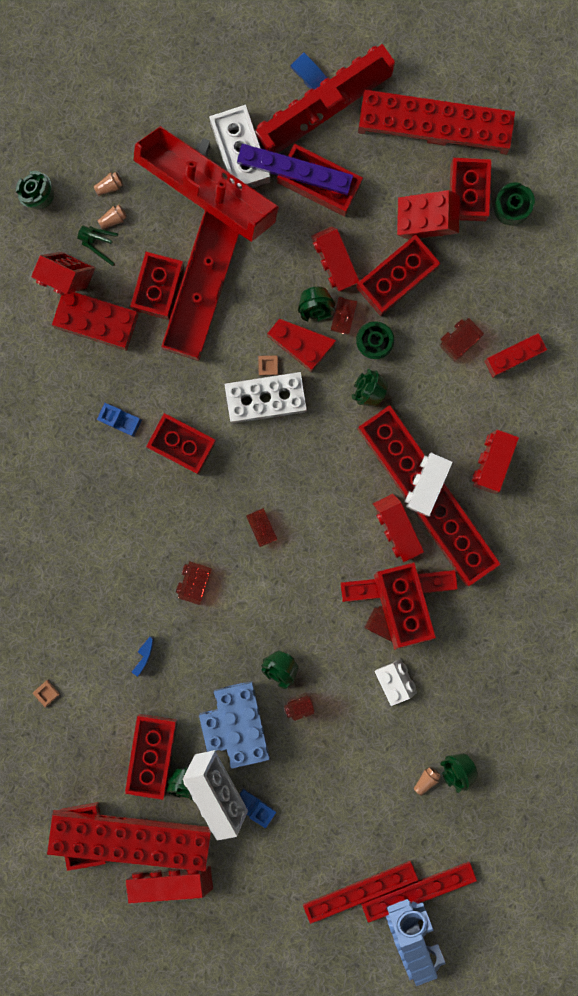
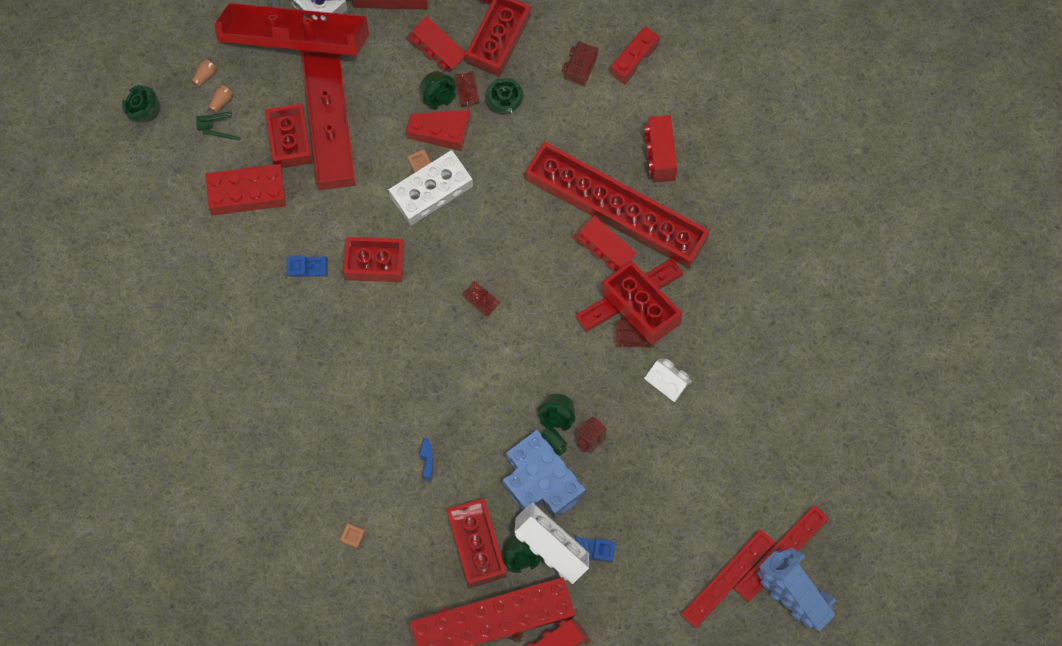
camera: 20 degrees left, 15 degrees down
(62, 273) = (200, 156): red brick -> none
(194, 582) = (443, 374): clear red brick -> none
(264, 693) = (555, 440): none -> dark green brick
(370, 389) = (520, 138): dark green cone -> none
(428, 484) = (611, 189): white brick -> none
(428, 779) = (740, 450): nougat cone -> none
(459, 771) = (763, 427): dark green cone -> none

